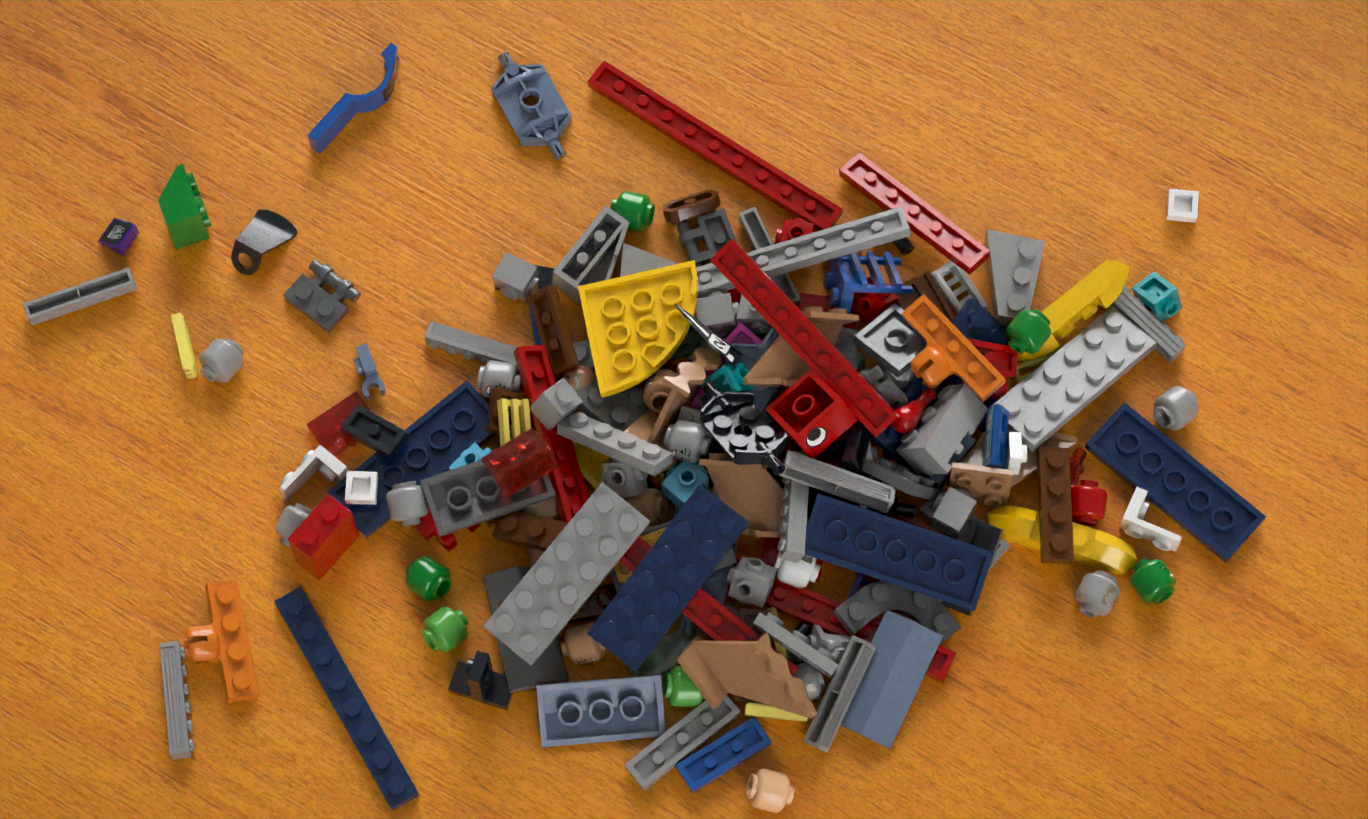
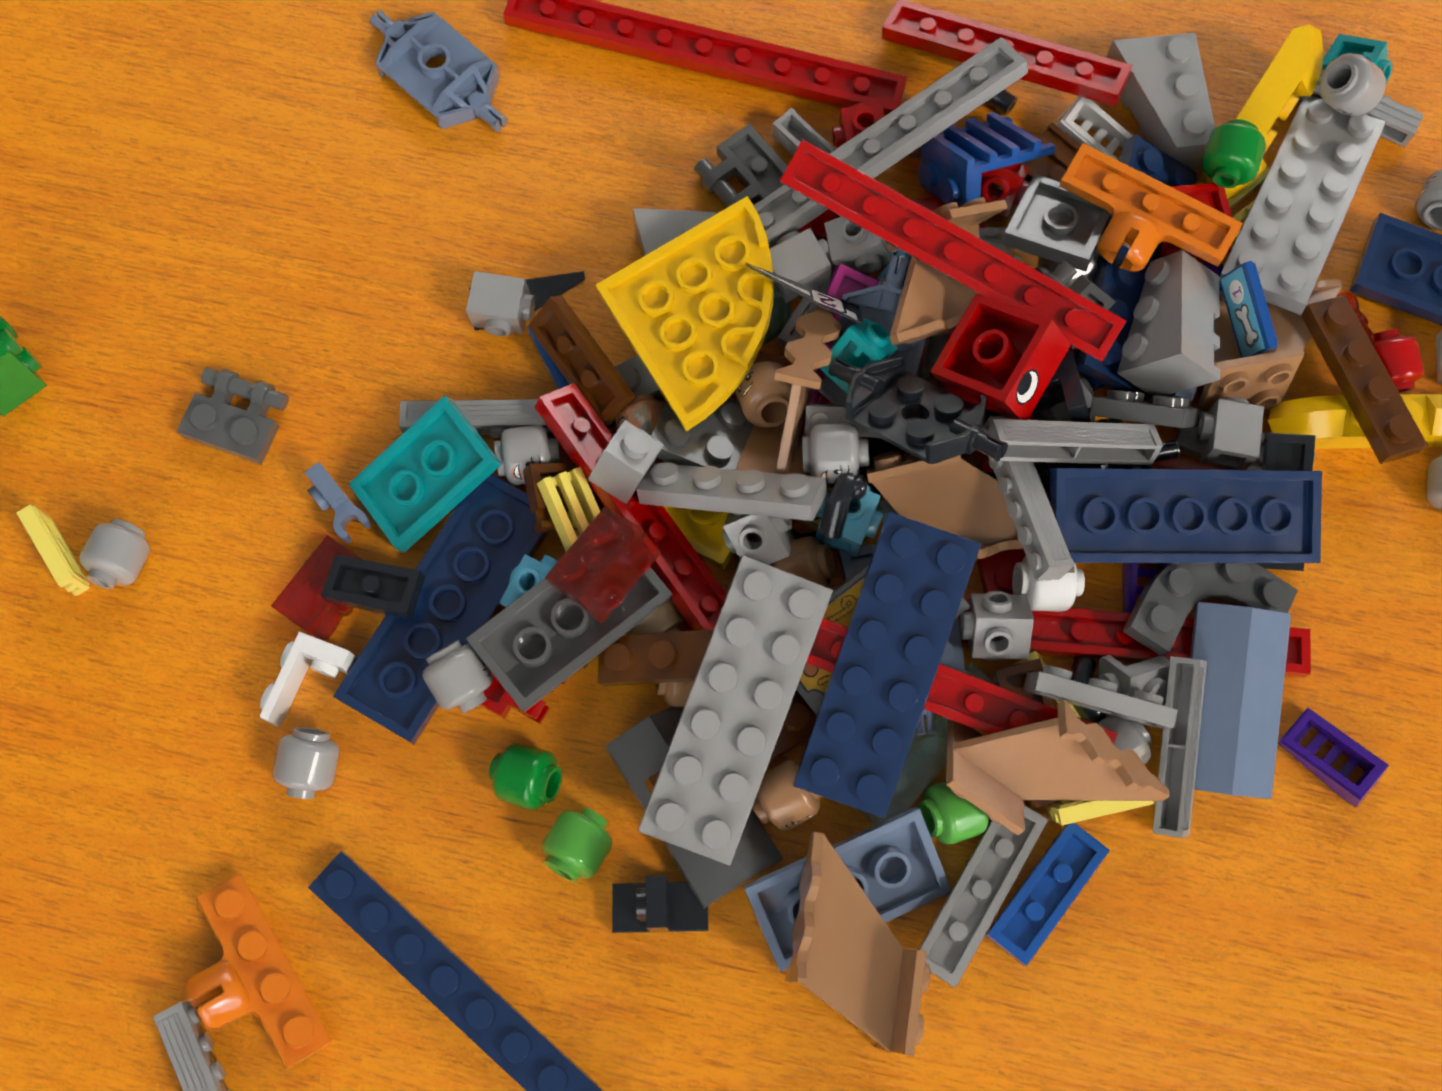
camera: 20 degrees left, 5 degrees up
(260, 236) = (118, 358): piece -> none
(323, 536) = (349, 768): red brick -> none
(351, 104) = (189, 140): blue piece -> none
(361, 487) = (381, 675): white plate -> none
(430, 372) = (424, 474): none -> teal plate
(586, 744) = (852, 956): none -> medium nougat piece
(593, 255) = (596, 239): light grey wedge -> none
(635, 209) = (627, 165): green head -> none
(676, 472) = (838, 503): none -> black arm
(682, 209) = (694, 141): reddish brown plate -> none
(769, 790) = (1136, 925): light nougat head -> none
(910, 413) = (1127, 308): red piece -> none
(948, 755) = (1357, 755): none -> dark purple slope
(1015, 452) = (1286, 320): white plate -> none
(1133, 310) = (1352, 85): none -> light grey head

